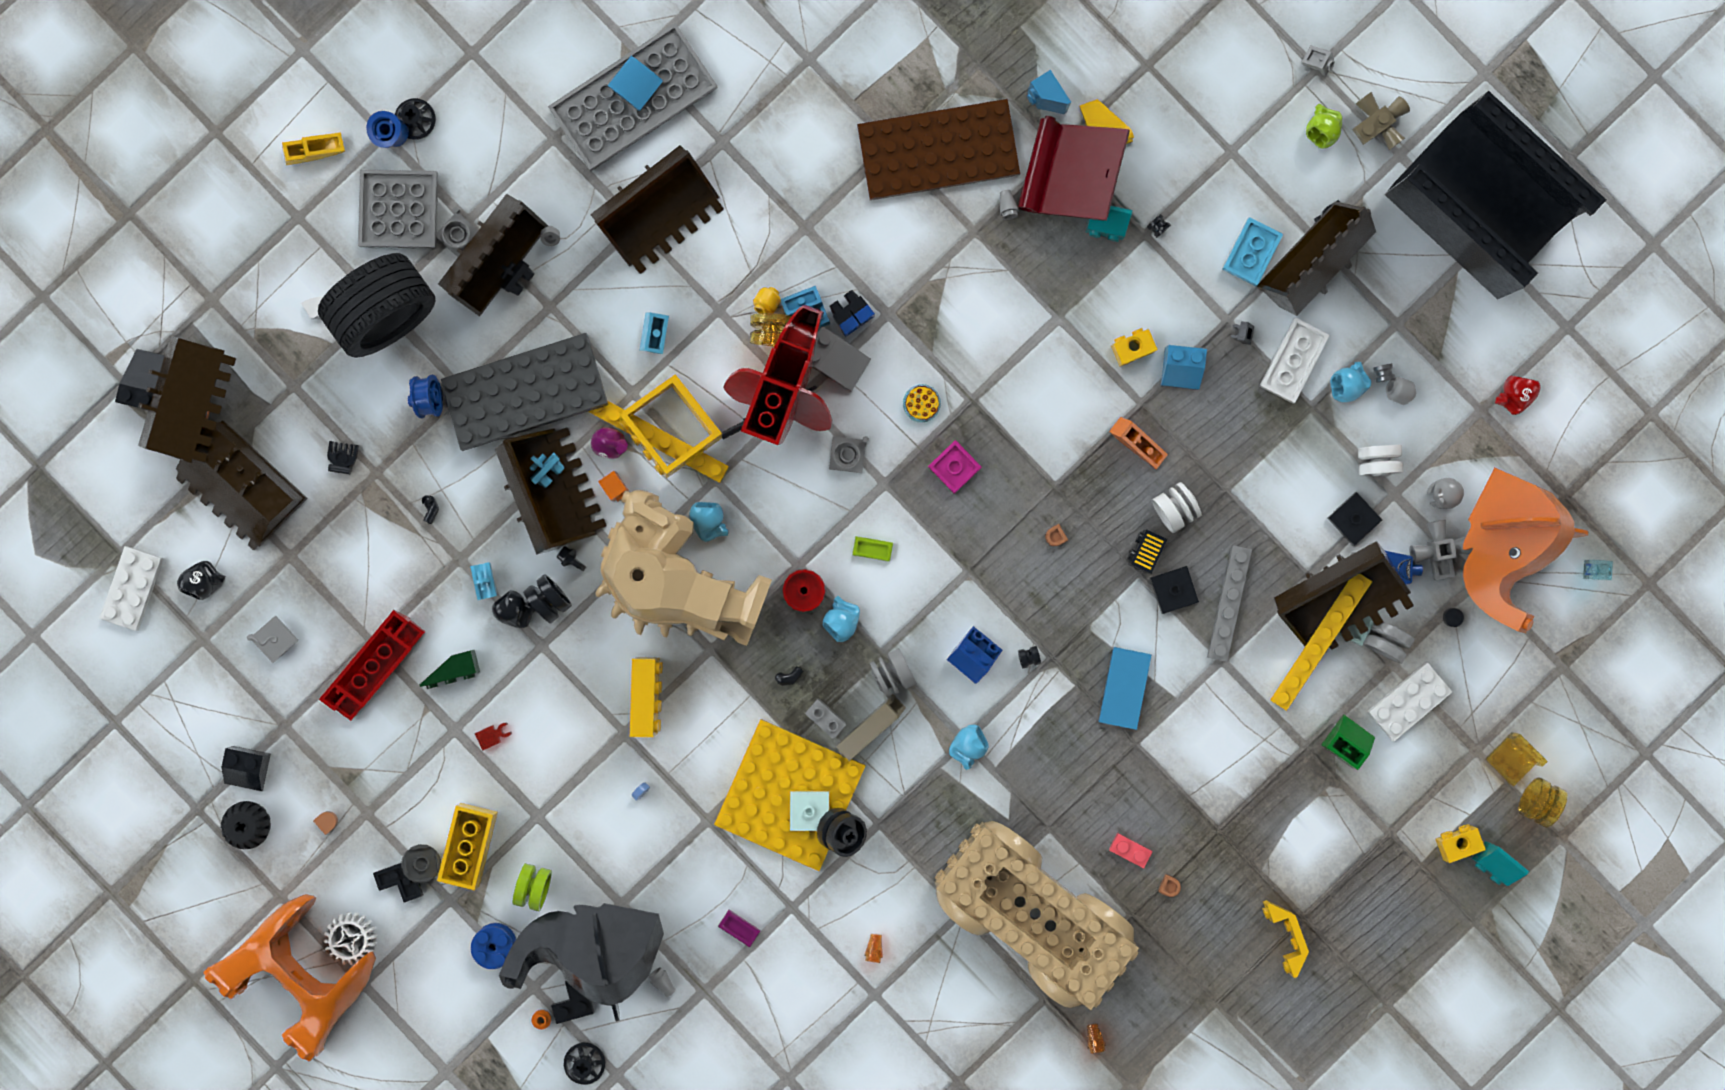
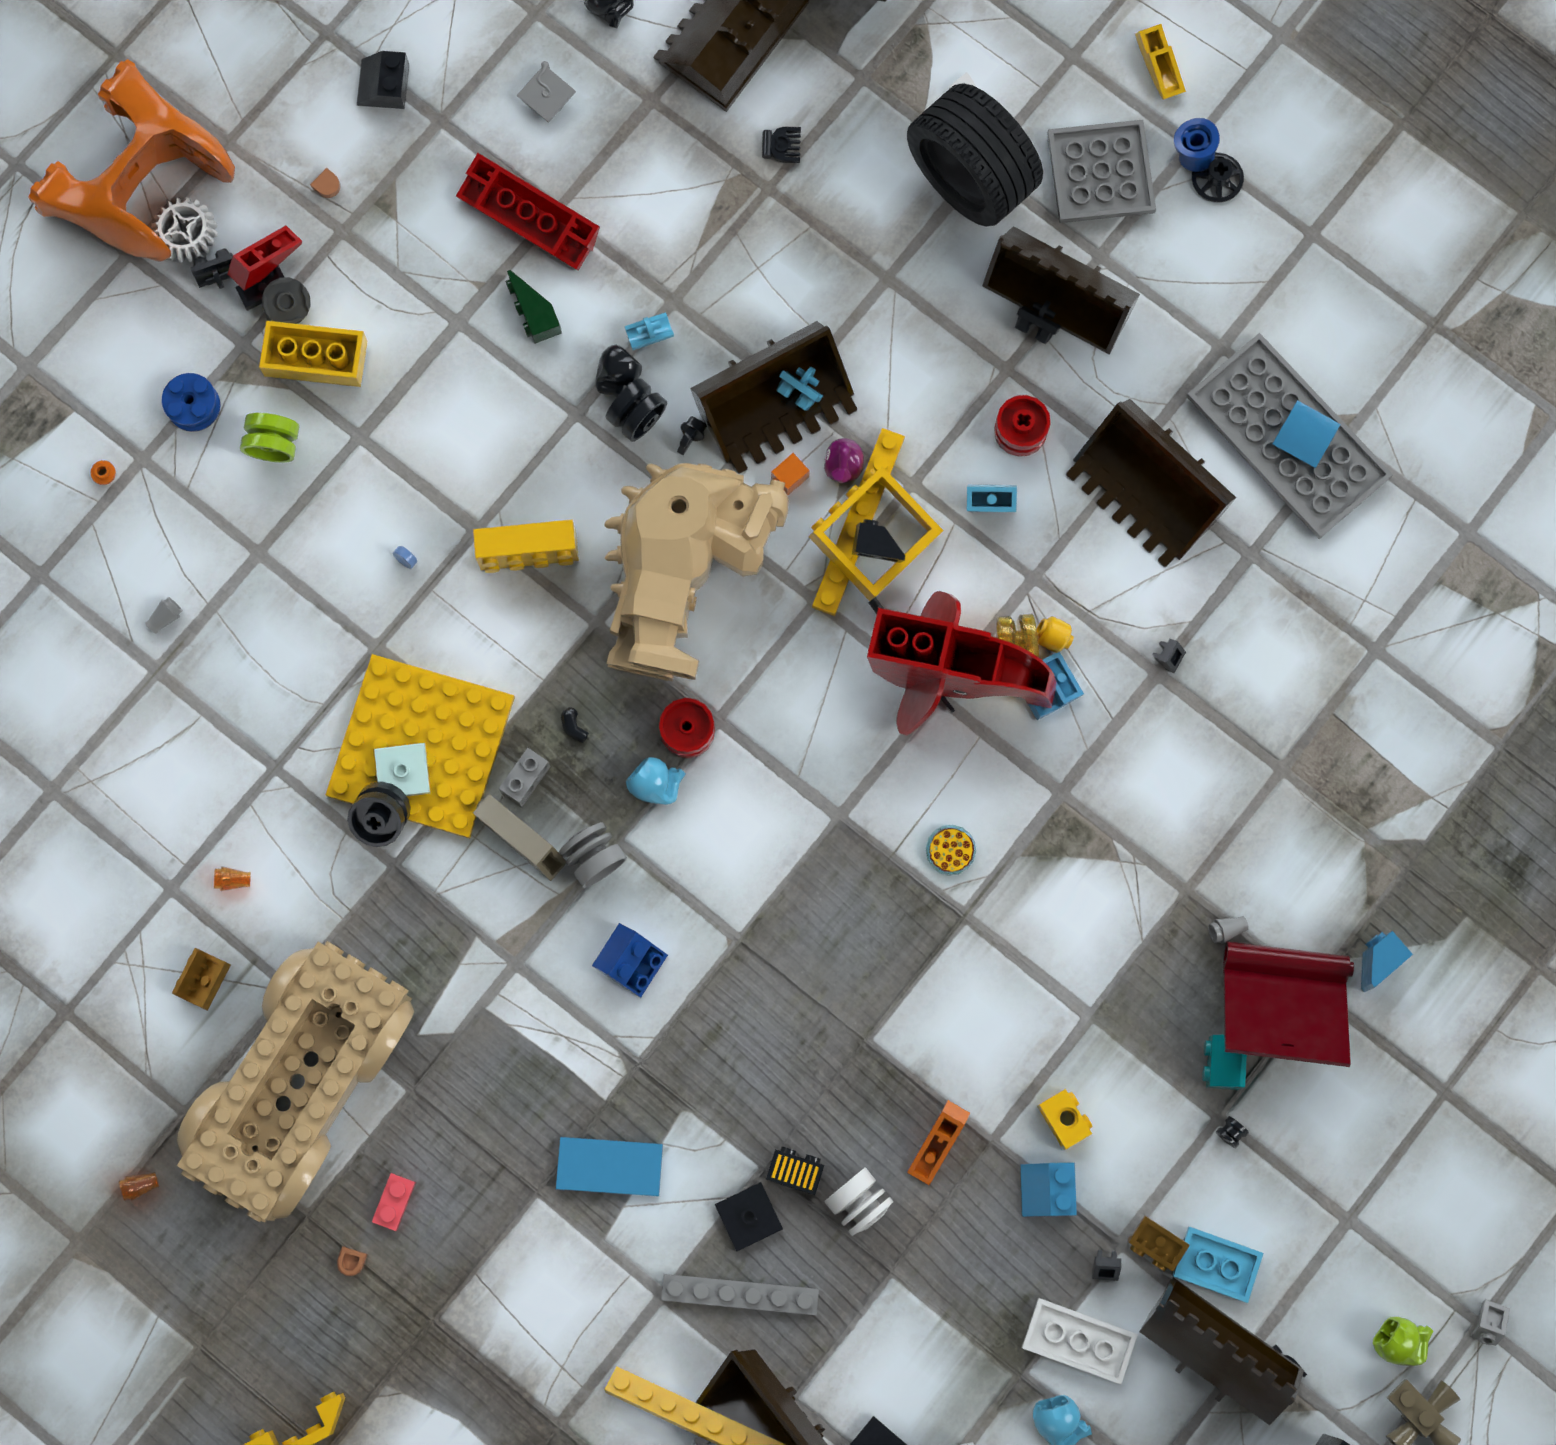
camera: 75 degrees right, 10 degrees down
(256, 822) = (313, 89): black wheel -> none
(383, 879) = (262, 257): none -> red slope
(388, 917) = (212, 271): none -> black hips
(425, 396) = (871, 232): blue wheel -> none
(432, 508) = (733, 259): black arm -> none
(456, 232) = (1084, 243): light grey hat -> none
(490, 736) = (455, 365): clear red plate -> none
(524, 392) = (894, 351): dark grey plate -> none
(550, 236) = (1095, 356): light grey tile -> none
(573, 1008) = (126, 515): black plate -> none
(584, 1064) = (50, 531): black wheel -> none
(587, 300) = (1034, 427): none -> red wheel
(598, 950) = (199, 525): black animal -> none
(680, 427) = (876, 542): none -> black slope
(708, 520) = (761, 595): medium azure piece -> none
(739, 928) = (241, 703): magenta tile -> none
(795, 214) = (1171, 655): none -> black tile
(838, 359) = (992, 733): light grey slope -> none
(845, 319) = (1046, 735): hips -> none
(847, 454) = (871, 764): light grey hat -> none
(872, 548) = (752, 811): lime tile -> none
(938, 149) = (1286, 830): reddish brown plate -> none
(948, 978) = (201, 979): none -> pearl gold bracket
(954, 466) = (873, 903): dark pink plate -> none
(969, 745) = (509, 967): medium azure piece -> none
(1029, 657) = (635, 1032): black wheel -> none
(1055, 536) = (800, 1048): nougat tile -> none
(1099, 115) = (1364, 1037): yellow flag -> none
(1233, 292) = (1158, 1244): none -> pearl gold bracket

